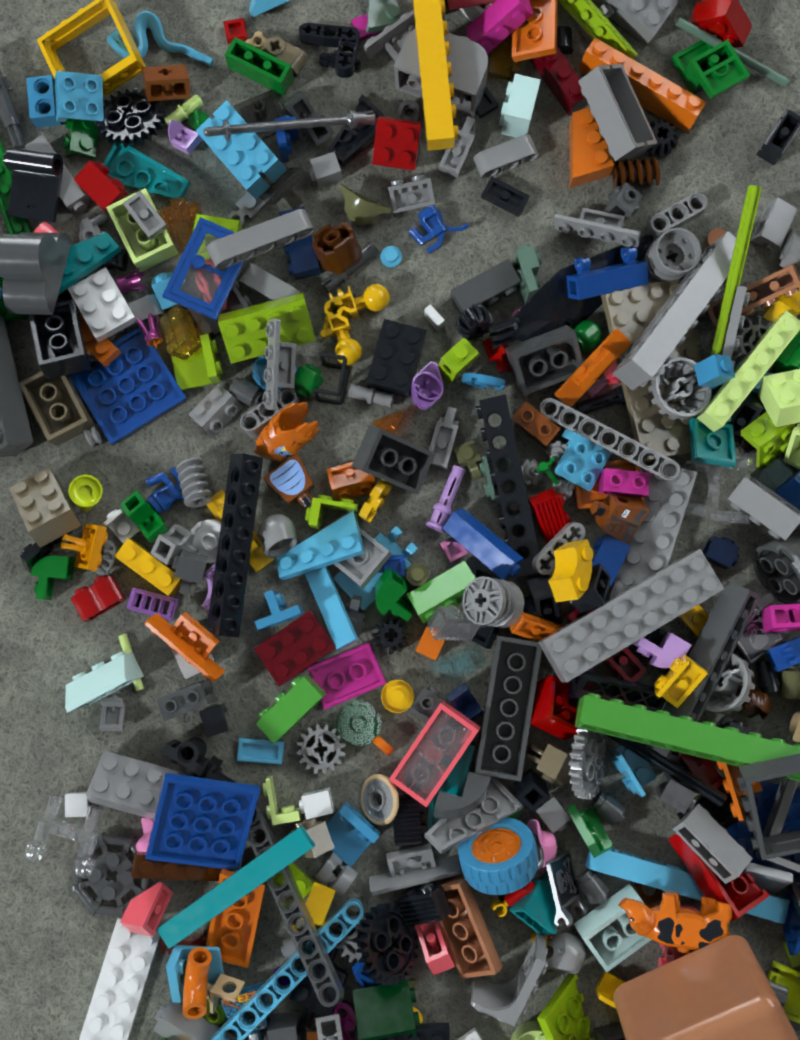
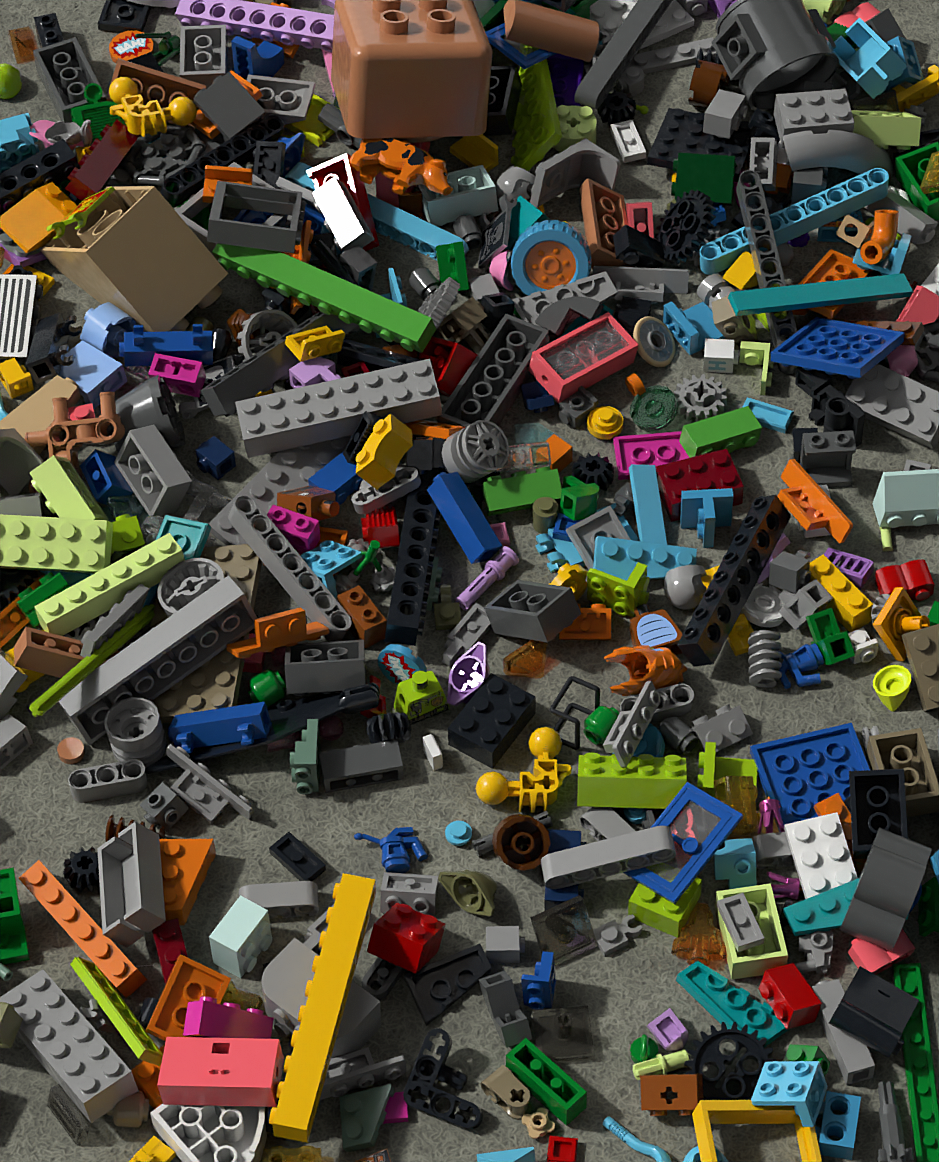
camera: 165 degrees left, 30 degrees down
(244, 153) = (600, 983): medium azure piece -> none
(352, 119) = (452, 975): flat silver bar -> none
(371, 395) = (543, 701): light grey pin -> none
(714, 371) = (153, 585): dark azure brick -> none

